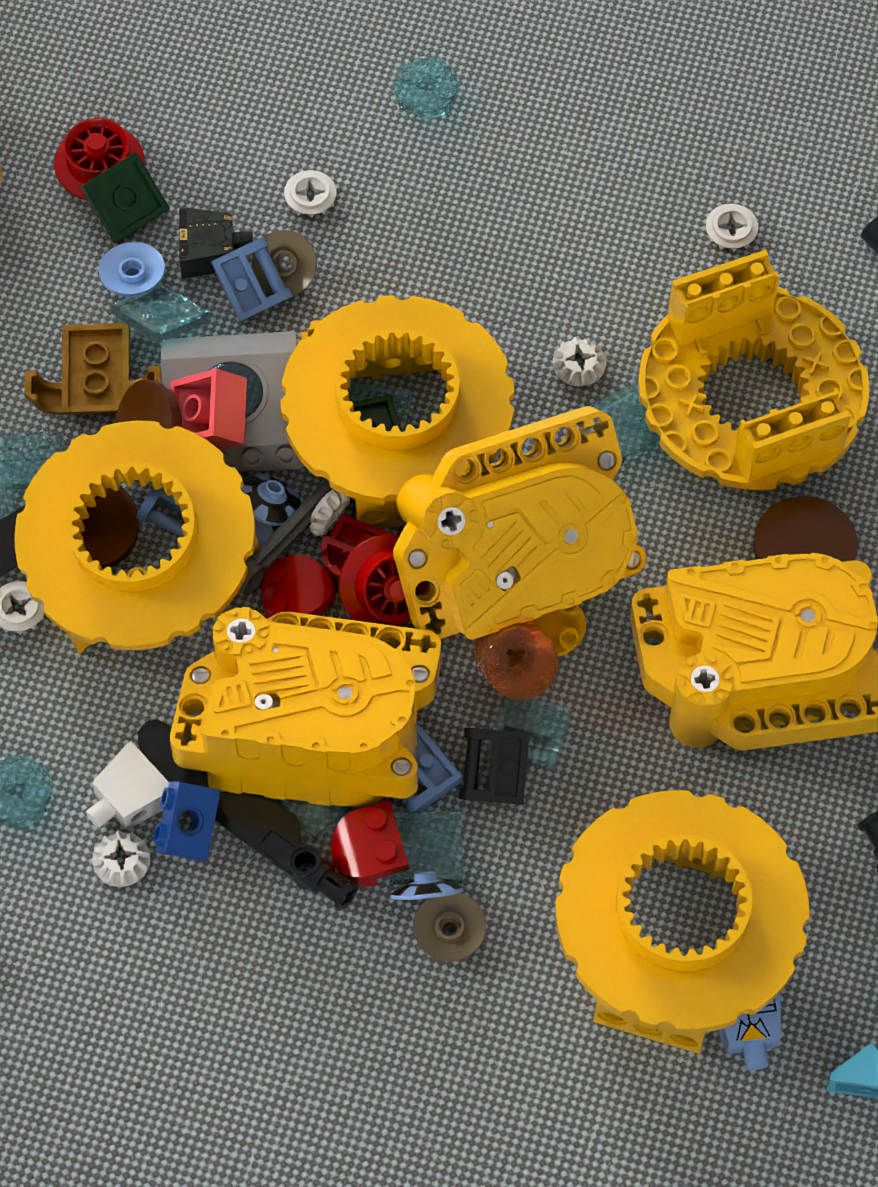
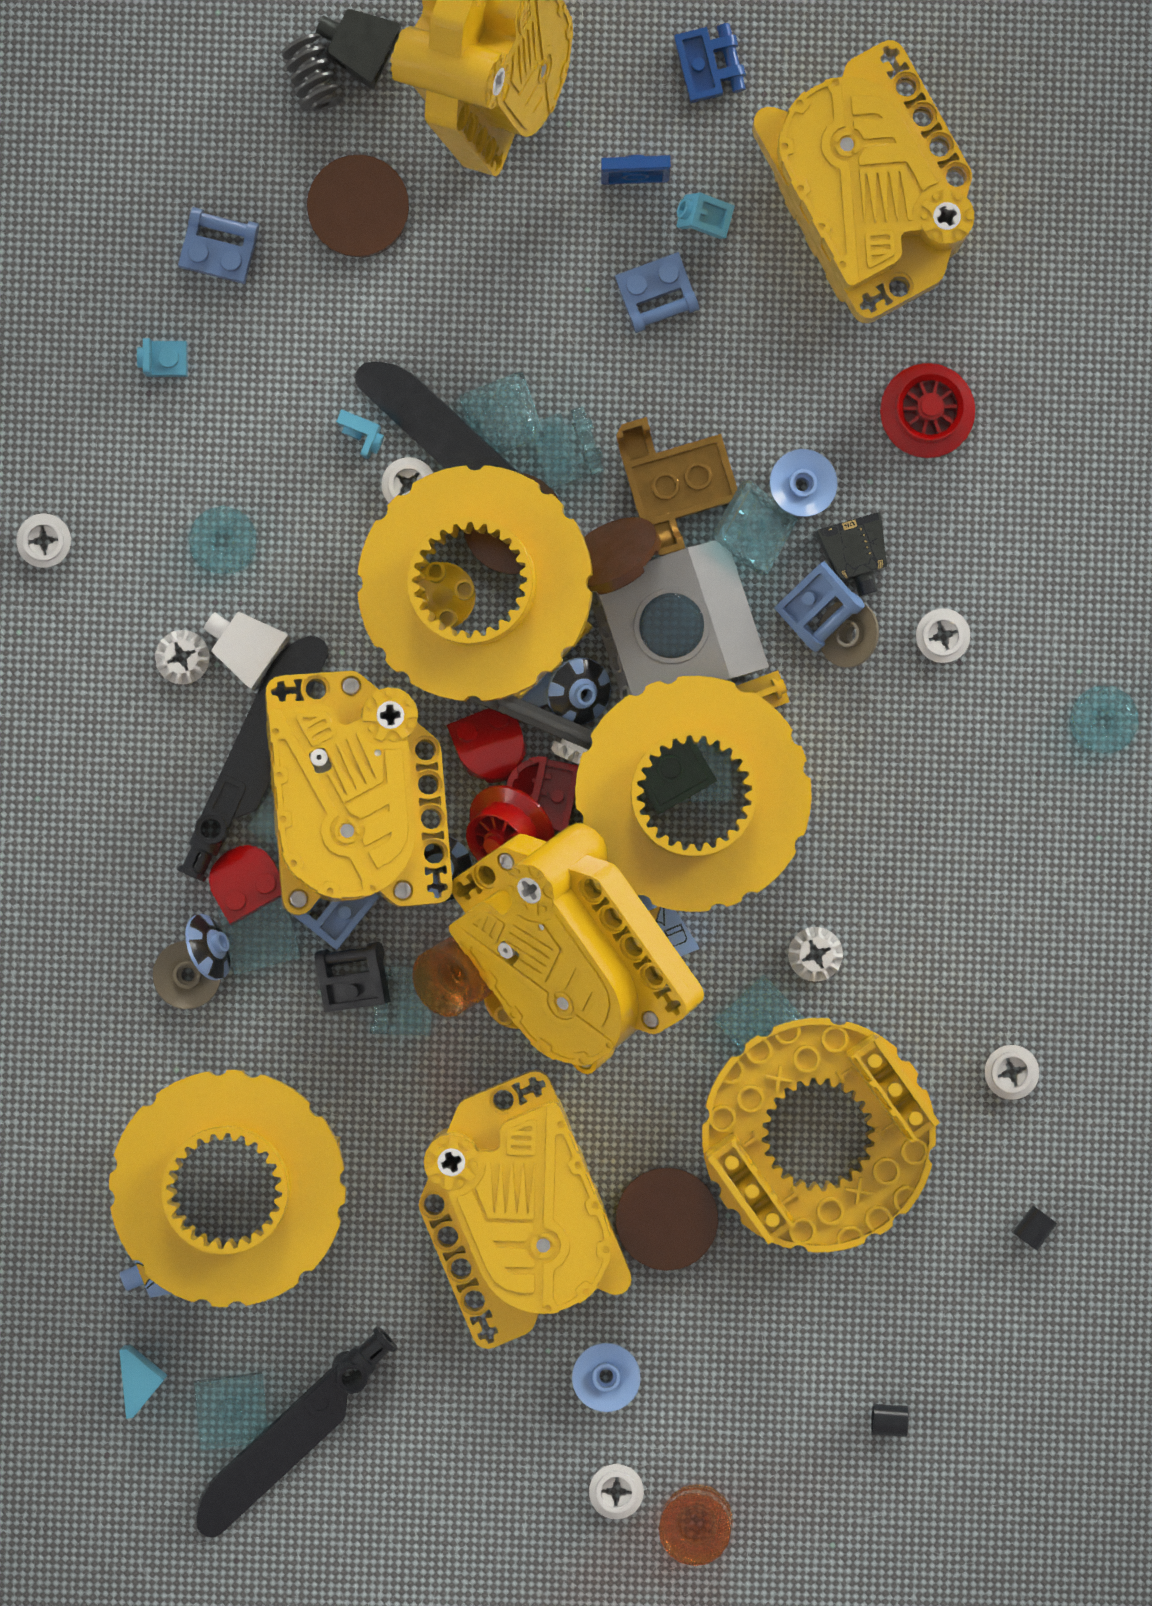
camera: 80 degrees right, 25 degrees up
(125, 197) = (882, 452): dark green plate -> none
(202, 806) = (207, 720): blue brick -> none
(213, 406) = (637, 614): coral slope -> none

